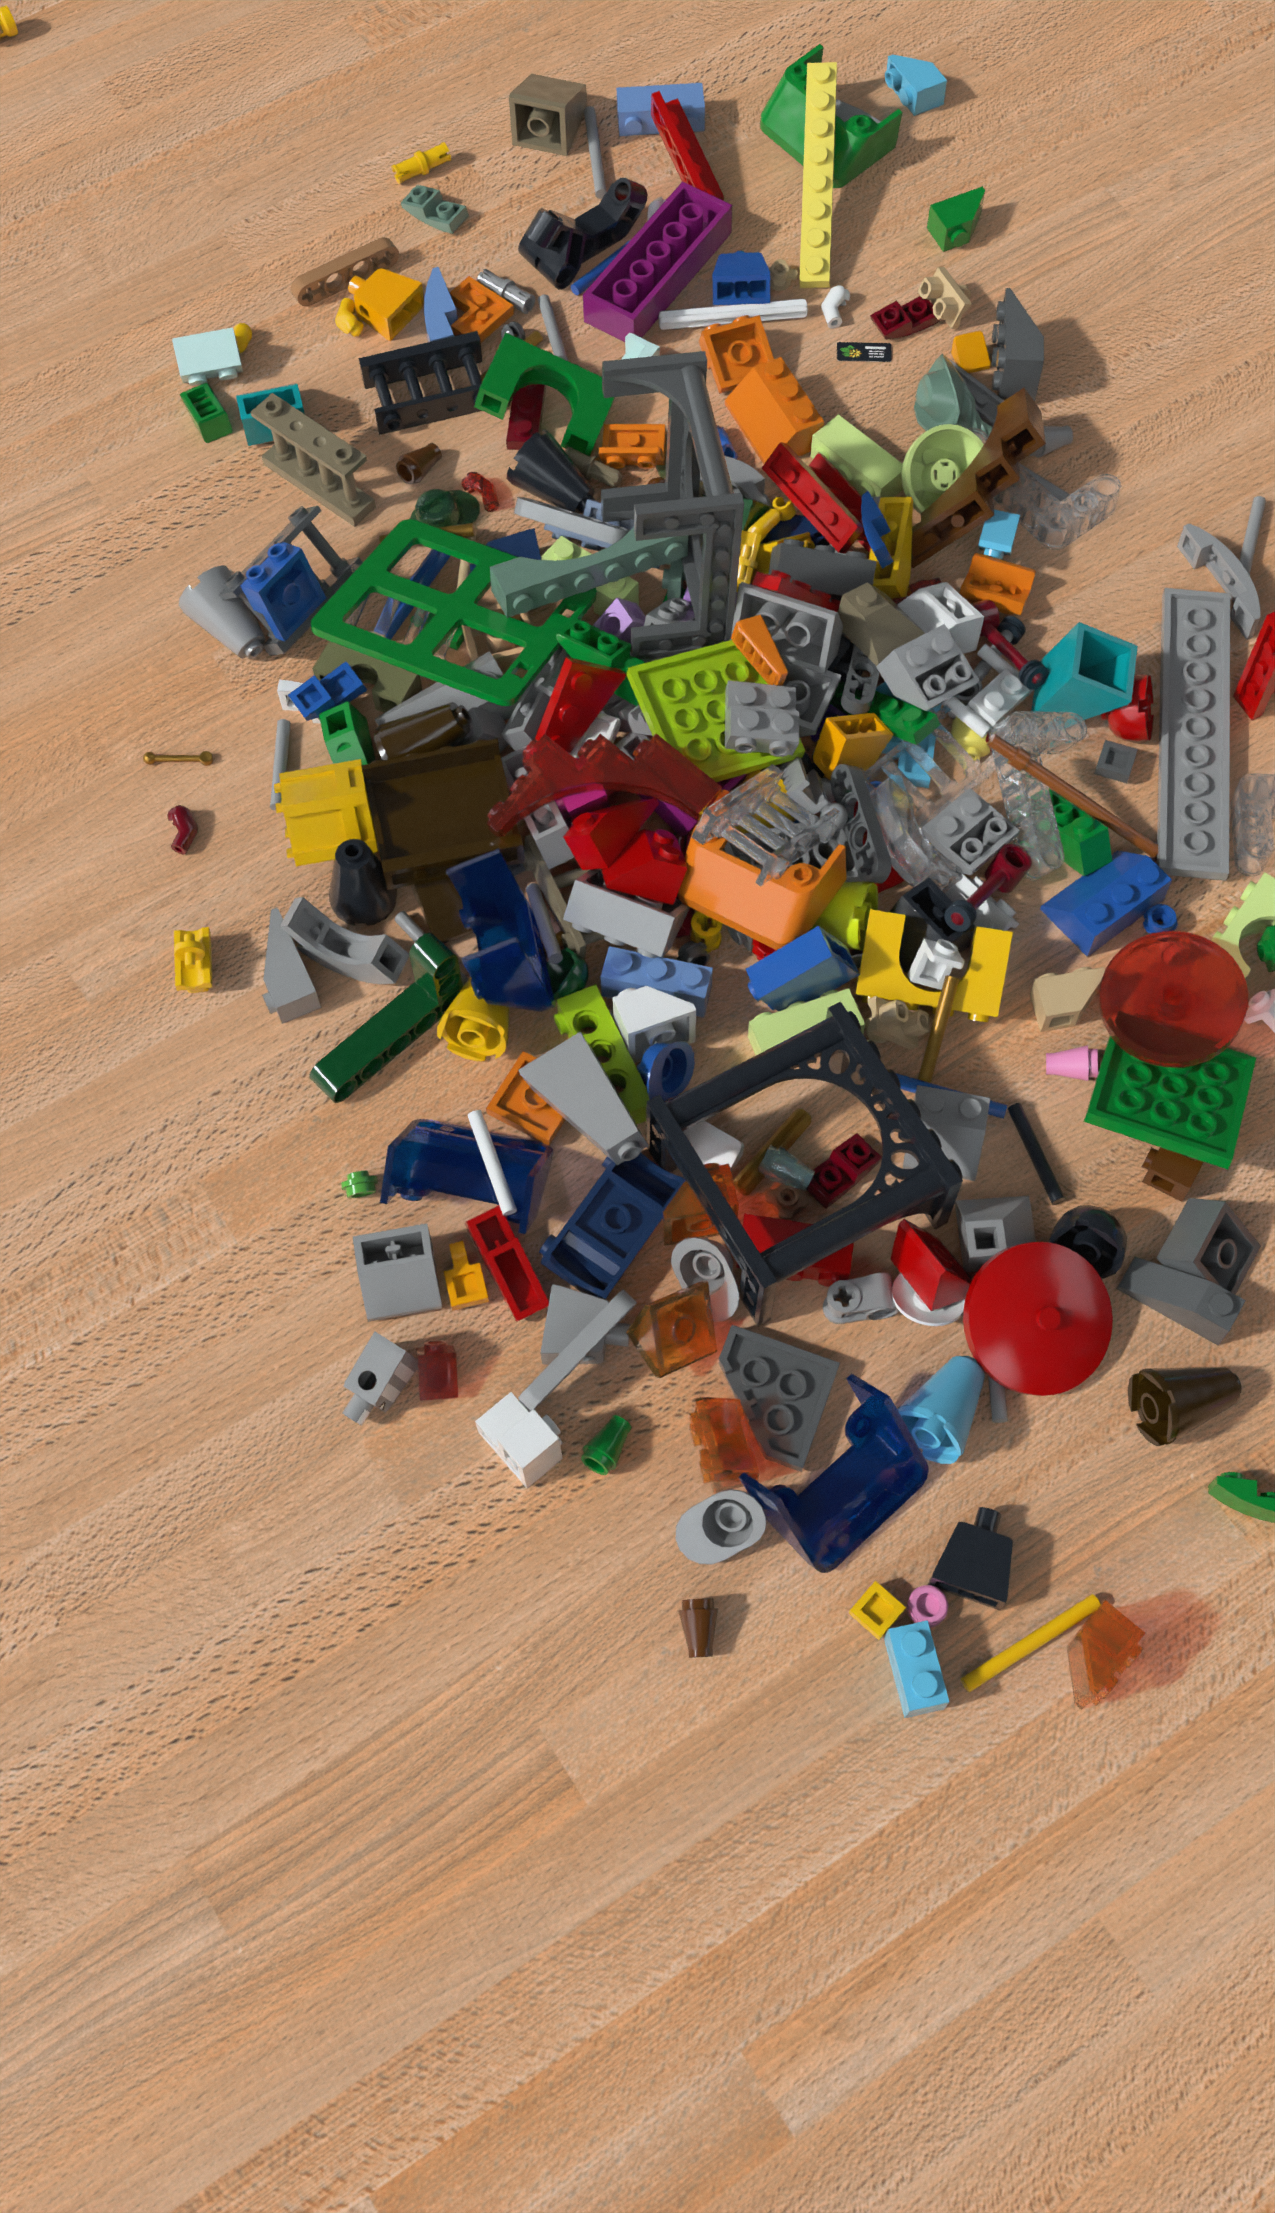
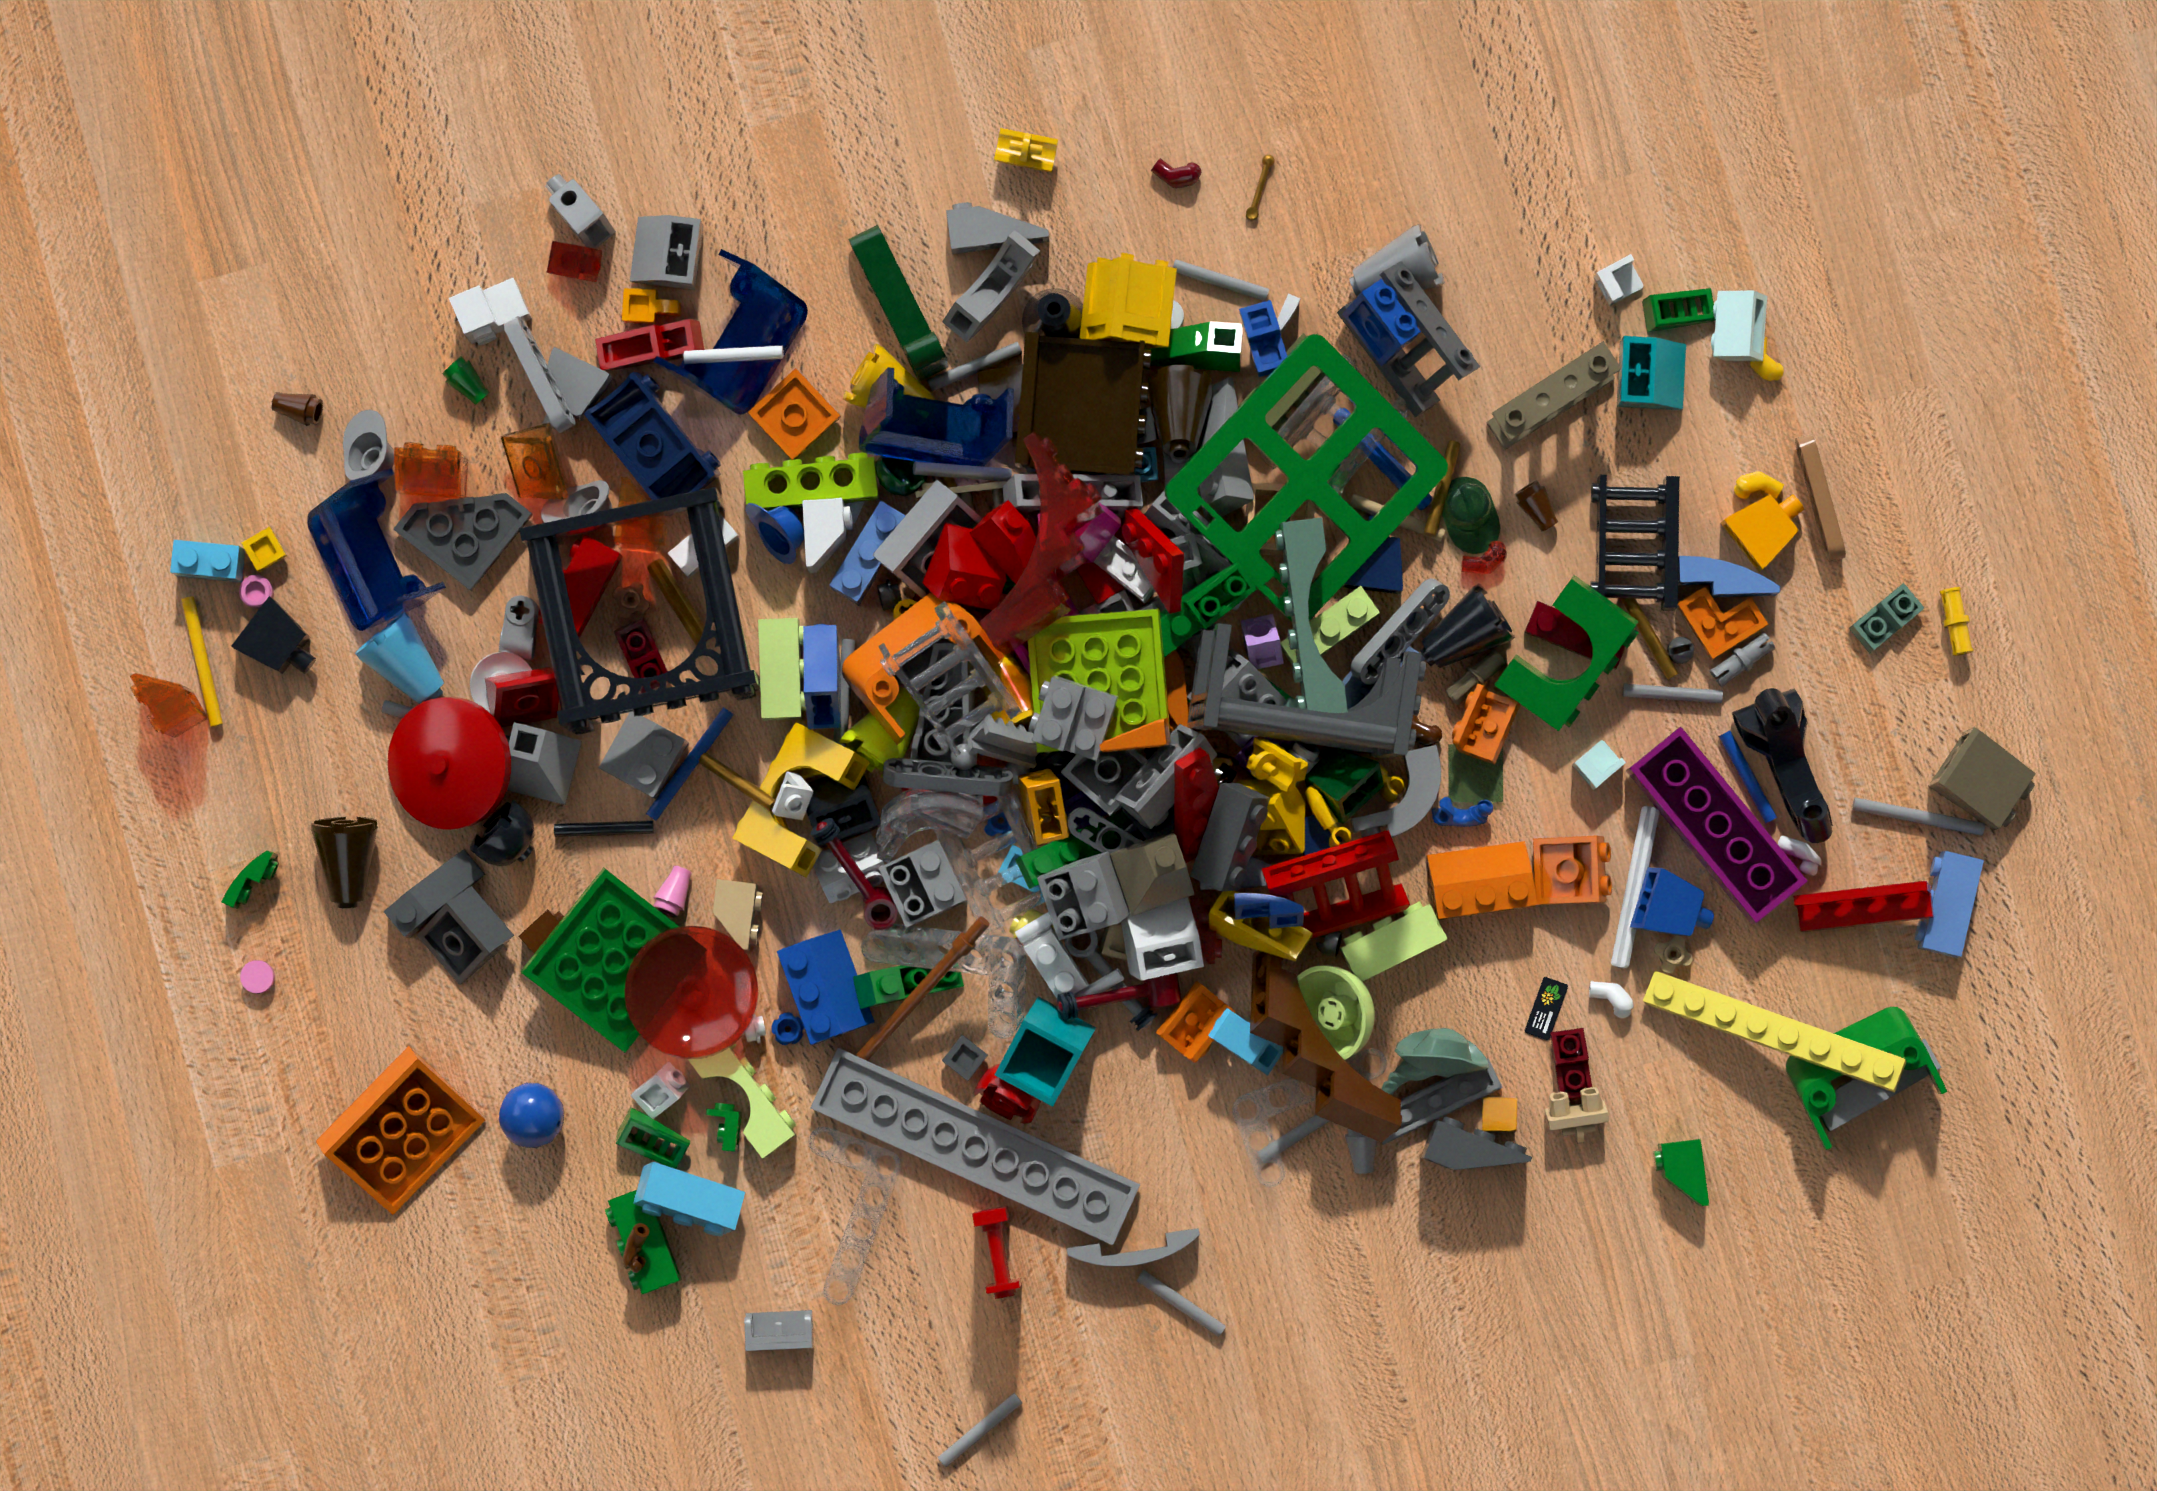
camera: 110 degrees right, 20 degrees up
(192, 460) = (1618, 280): none -> white panel
(359, 1184) = (761, 241): bright green plate -> none
(583, 1094) = (758, 450): light grey slope -> none
(785, 1168) = (650, 602): clear light blue cone -> none
(895, 1023) = (757, 747): tan hips -> none
(916, 83) = (1899, 1201): medium azure slope -> none

